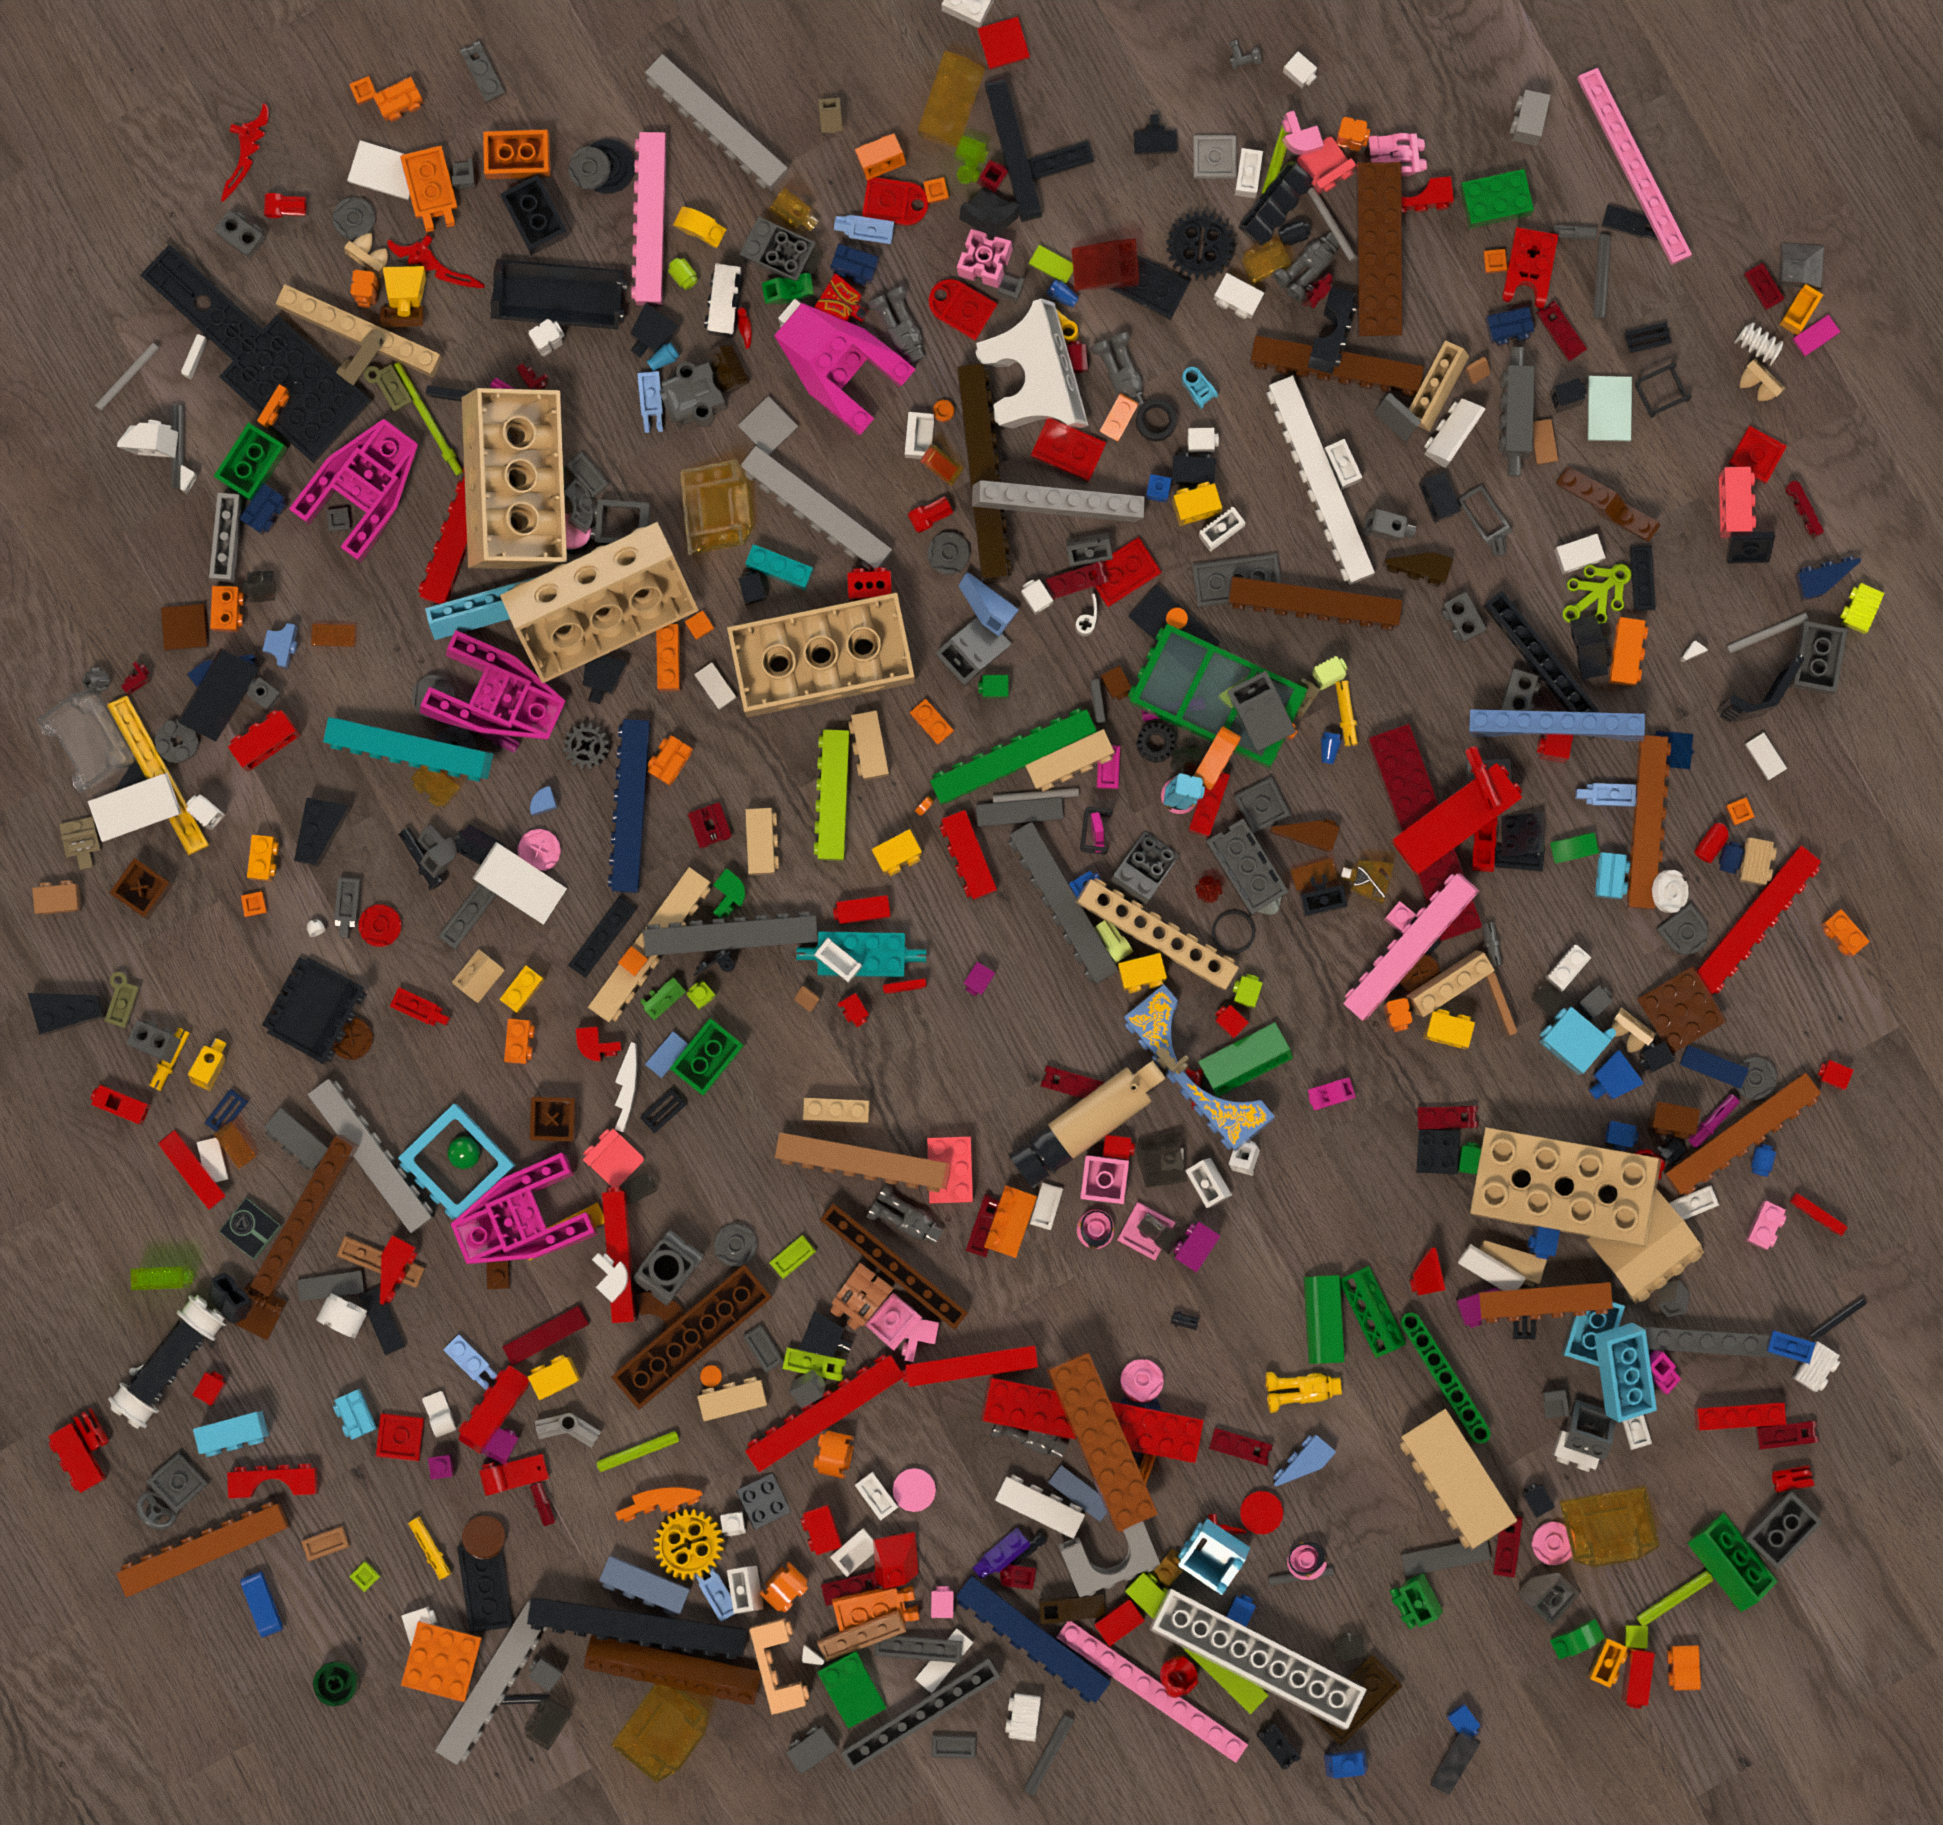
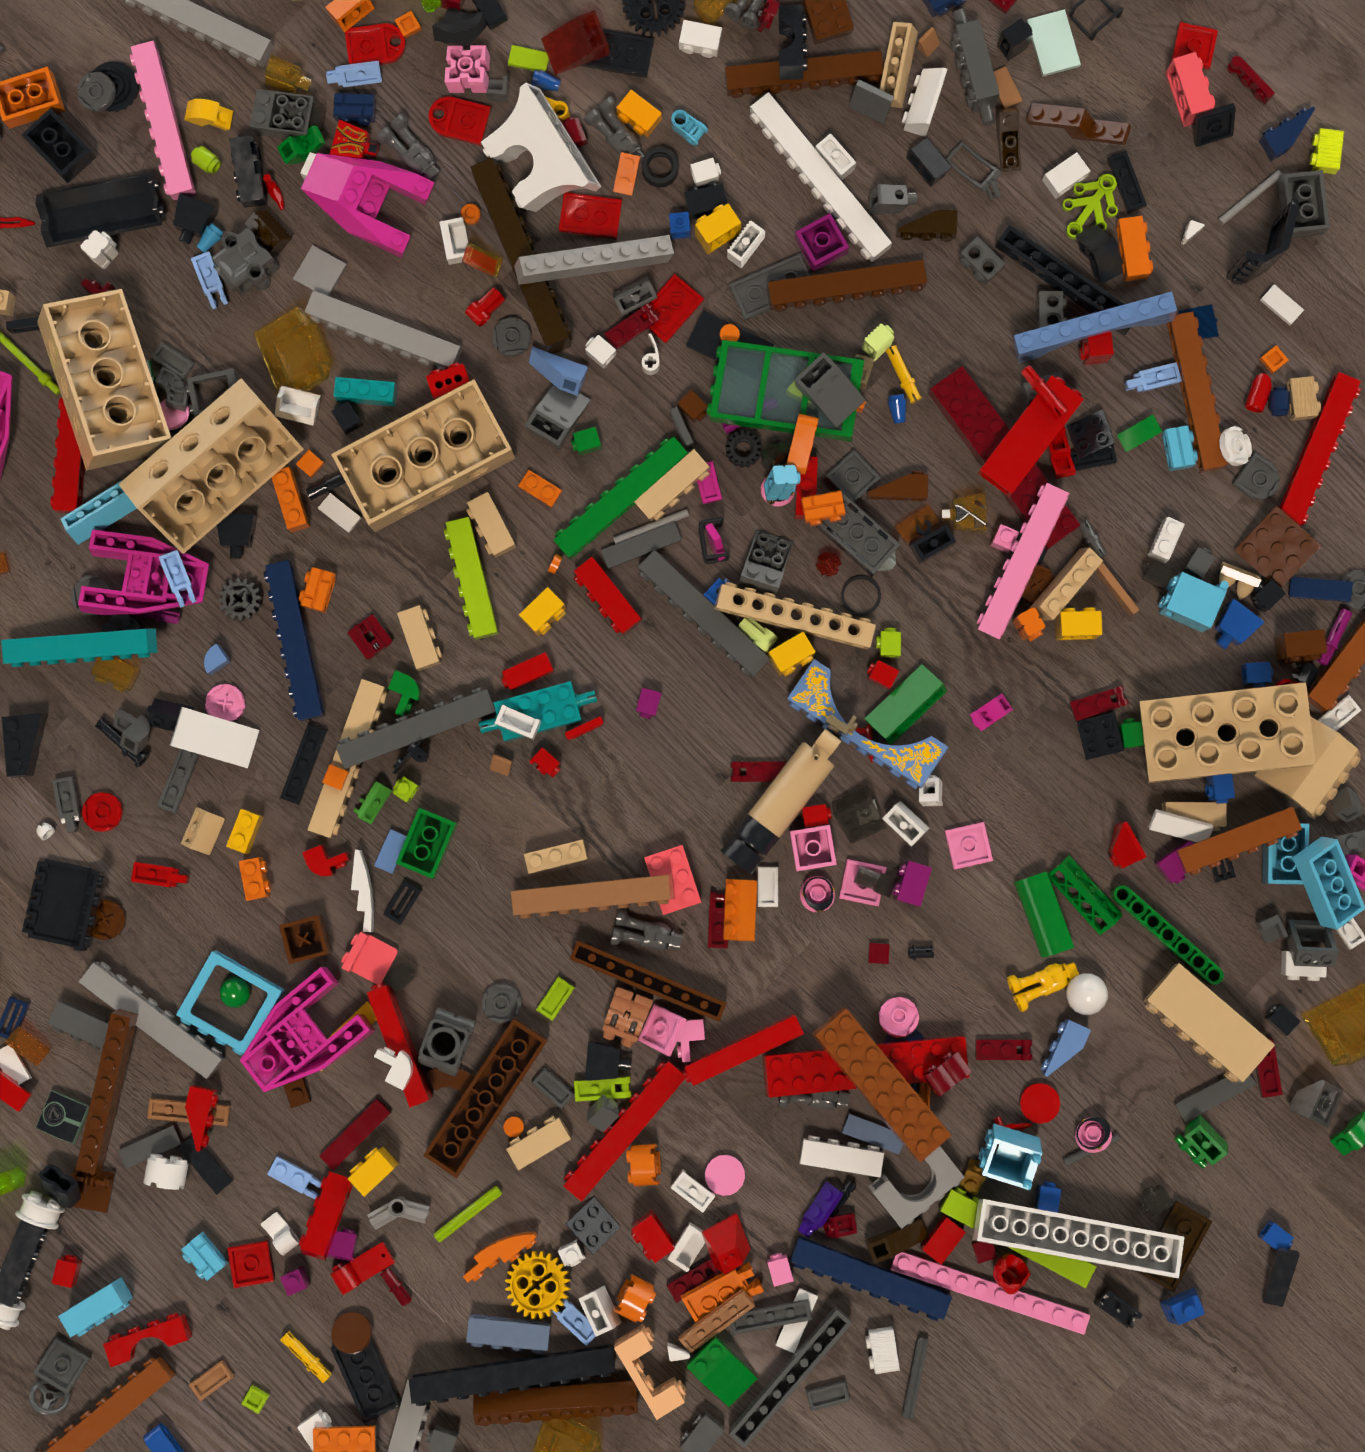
camera: 15 degrees left, 0 degrees up
(530, 705) = (176, 575): none -> light blue hinge
(704, 561) = (297, 405): none -> white panel
(708, 654) = (325, 486): none -> black axle
(1141, 1309) = (878, 953): none -> dark red tile
(1150, 358) = (638, 113): none -> light orange brick
(1158, 1647) = (984, 1251): none -> dark red tile
(1172, 1450) = (946, 1073): none -> dark red brick
(1219, 831) = (823, 507): none -> orange brick
(1267, 1225) = (968, 845): none -> bright pink tile
(1301, 550) = (821, 242): none -> magenta brick
(1342, 1413) = (1087, 994): none -> white piece
(1531, 497) = (1008, 138): none -> dark brown slope
(1551, 1543) = (1305, 1054): bright pink tile -> none

